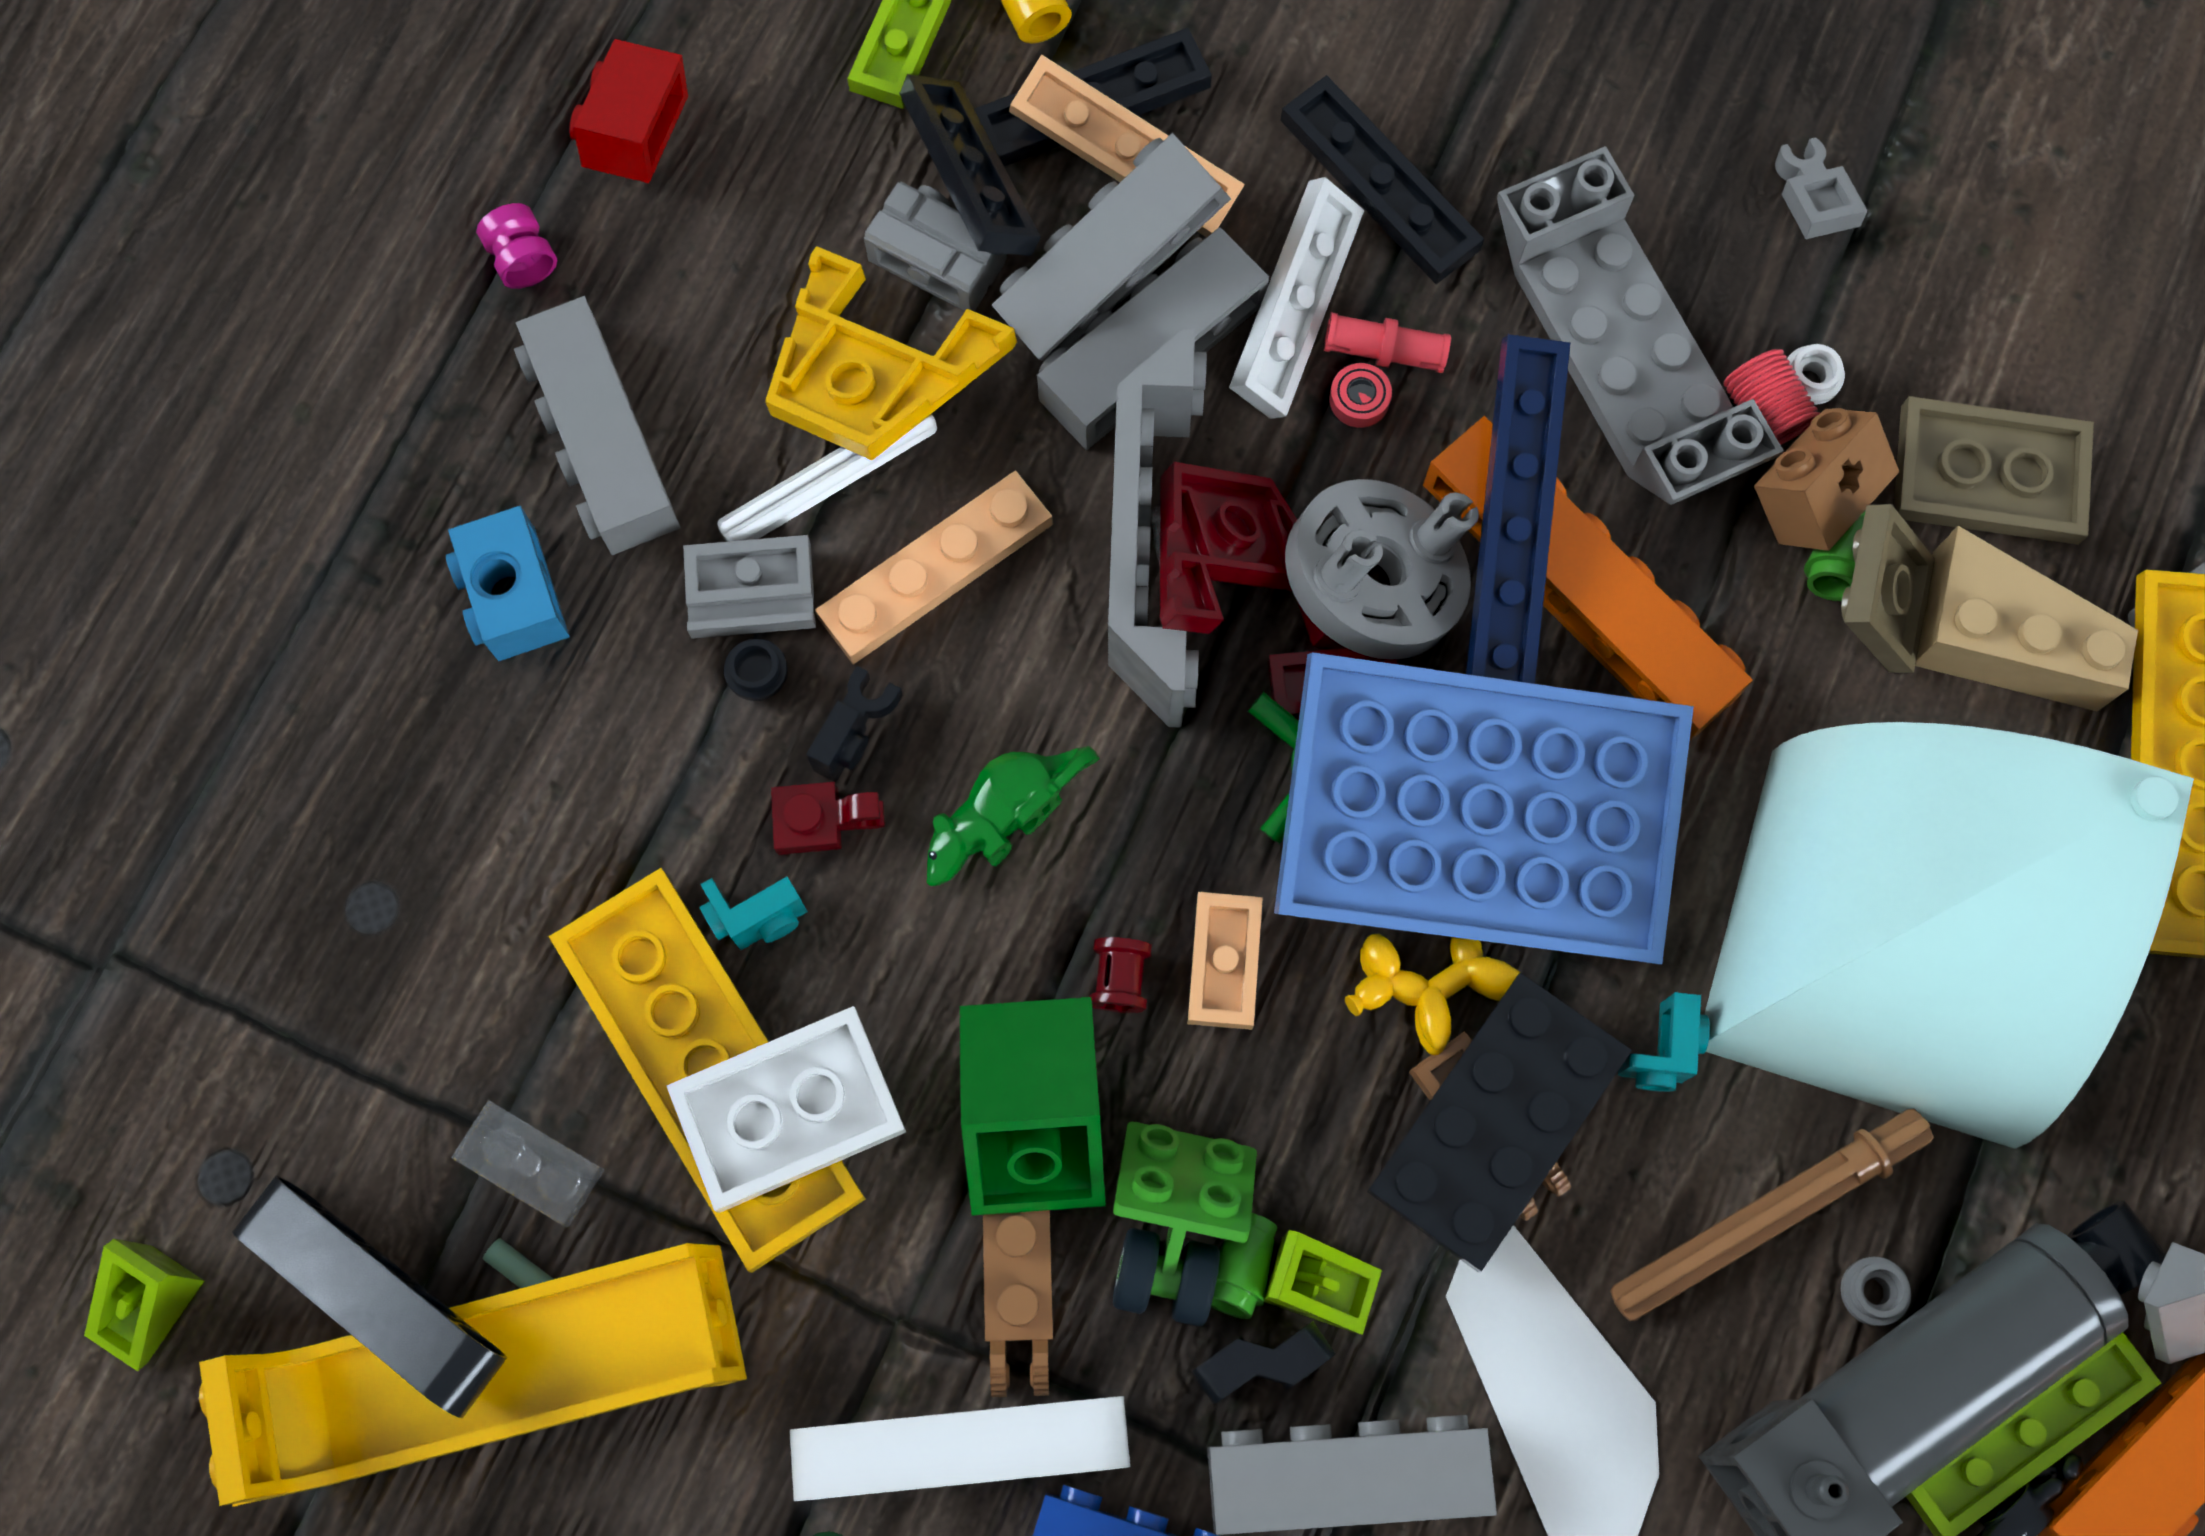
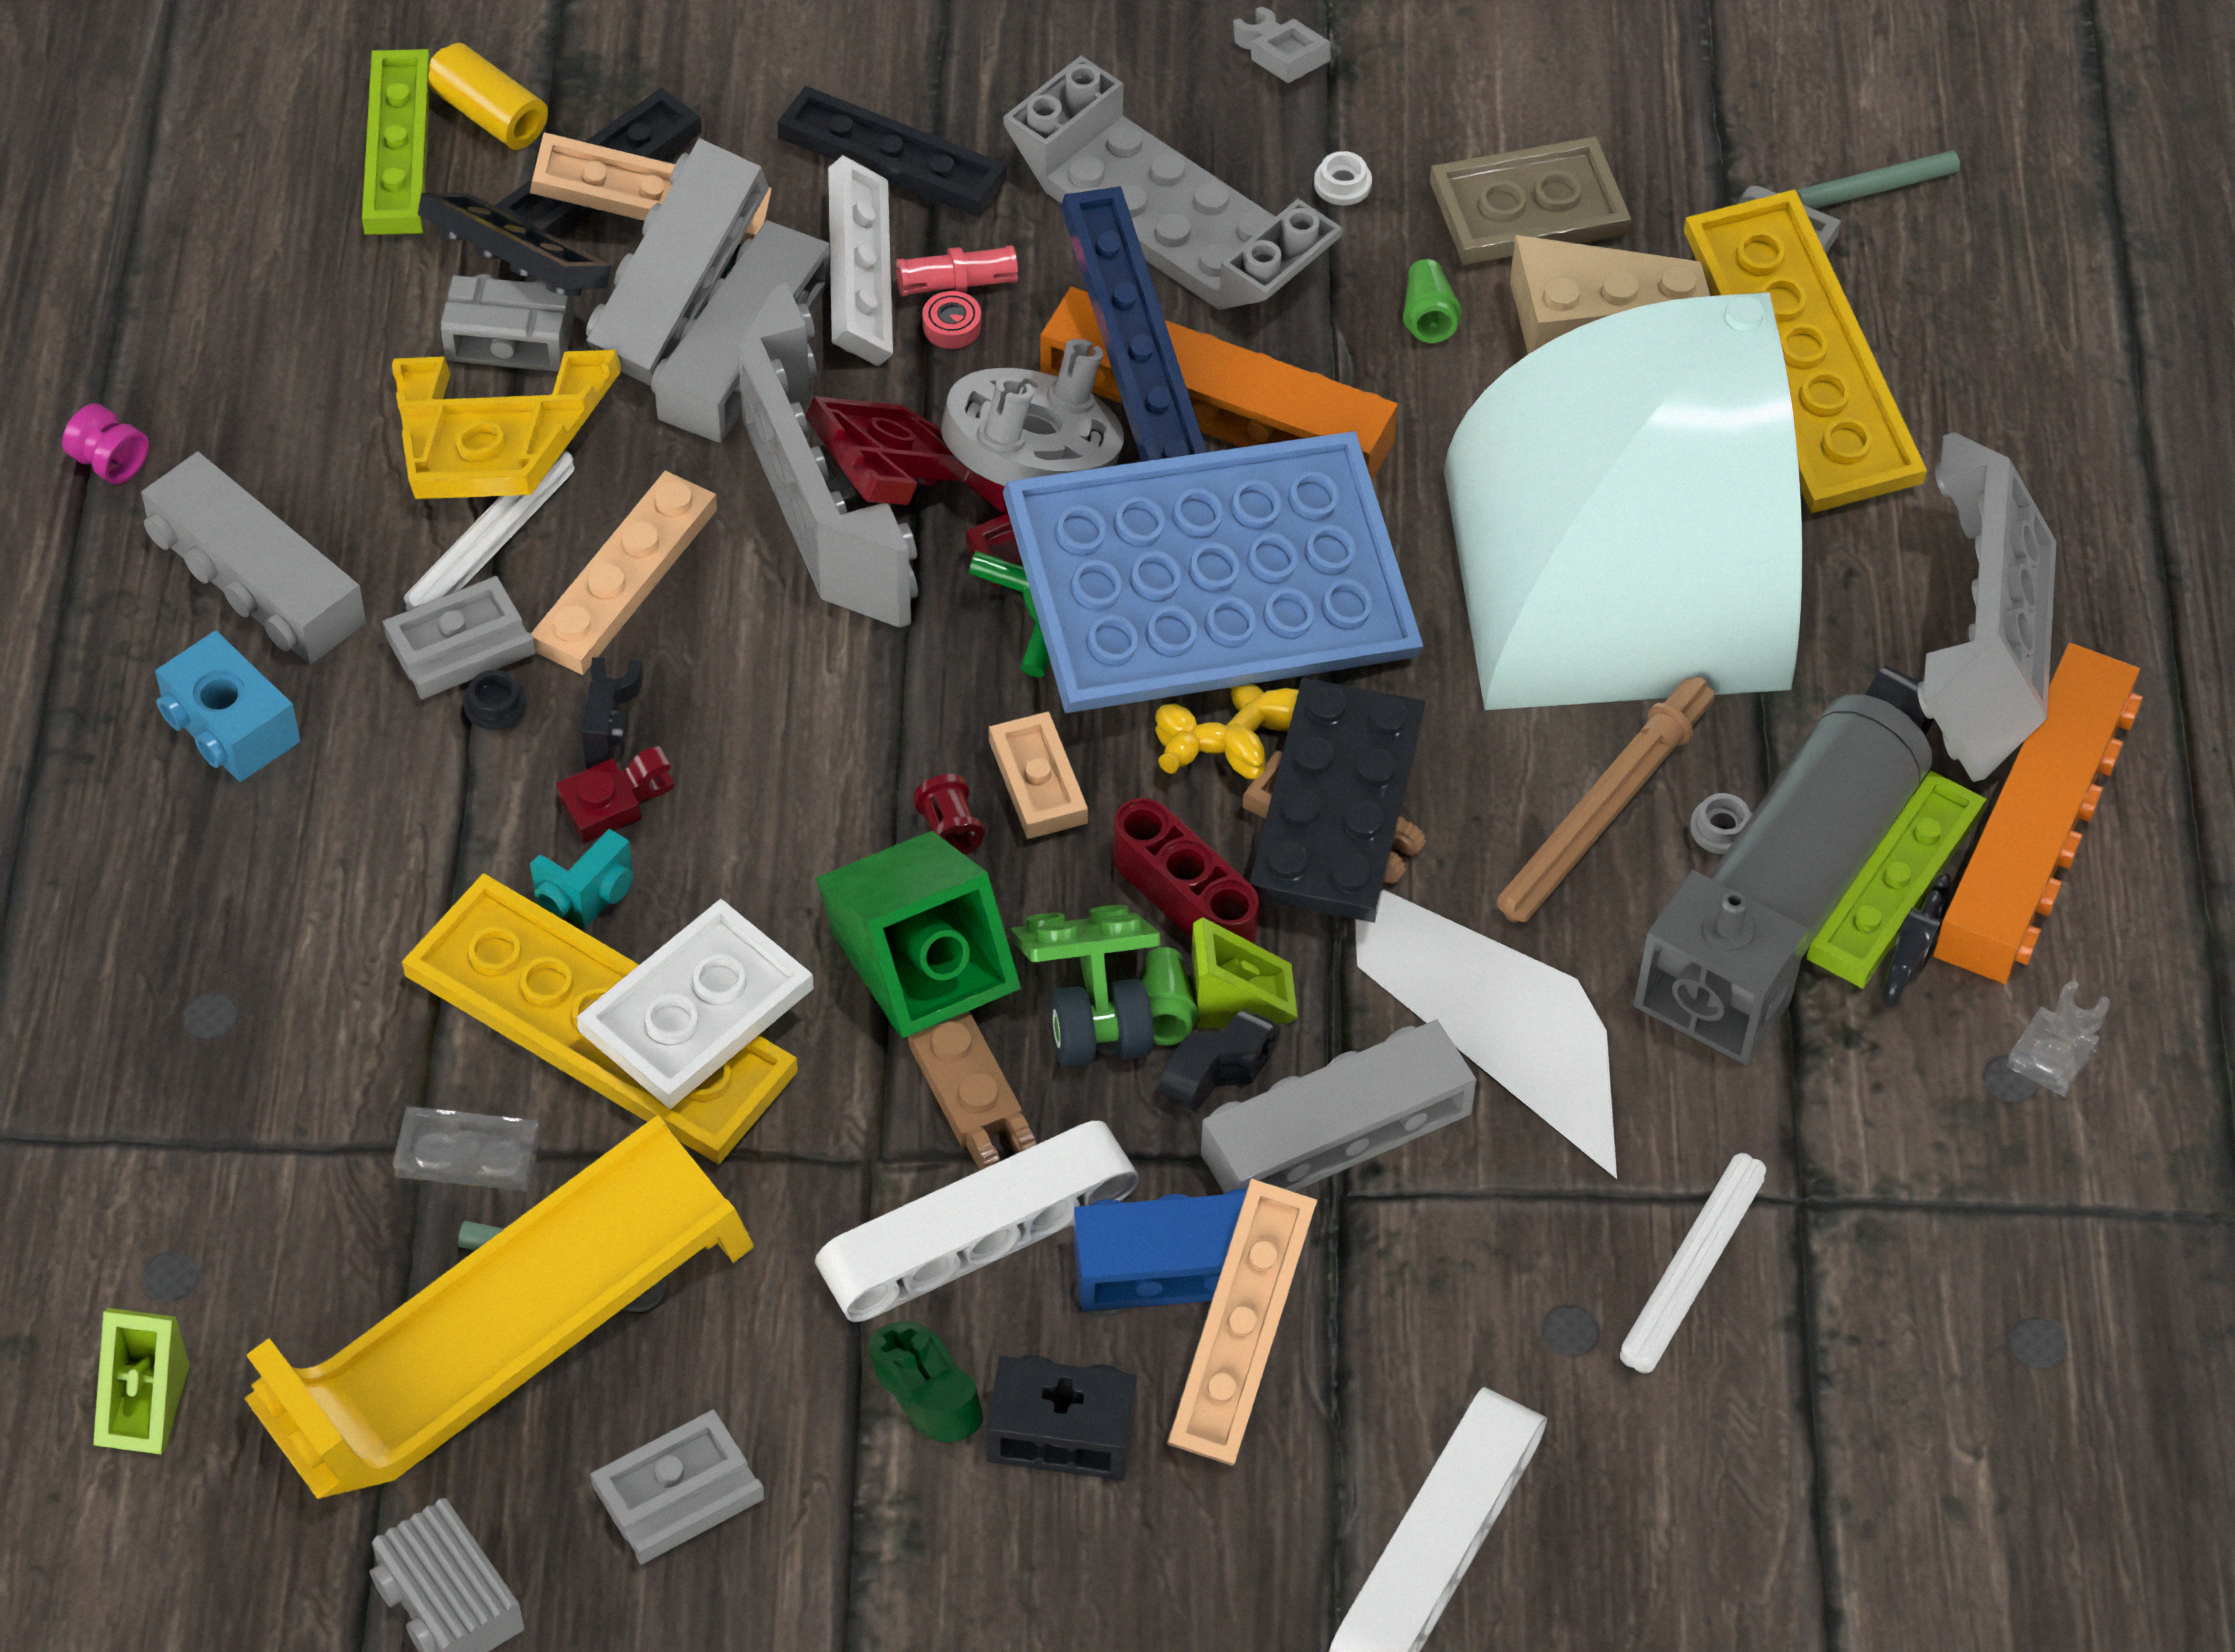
camera: 25 degrees left, 20 degrees down
(370, 1297) = (371, 1279): beam -> none
(629, 110) = (165, 303): red brick -> none
(1008, 795) = (779, 718): green animal -> none
(1318, 1109) = (1177, 853): none -> dark red beam
(1681, 1037) = (1465, 703): teal bracket -> none
(1776, 392) = (1319, 192): coral piece -> none
(1827, 478) = (1389, 240): medium nougat brick -> none
(1888, 588) = (1479, 301): dark tan plate -> none

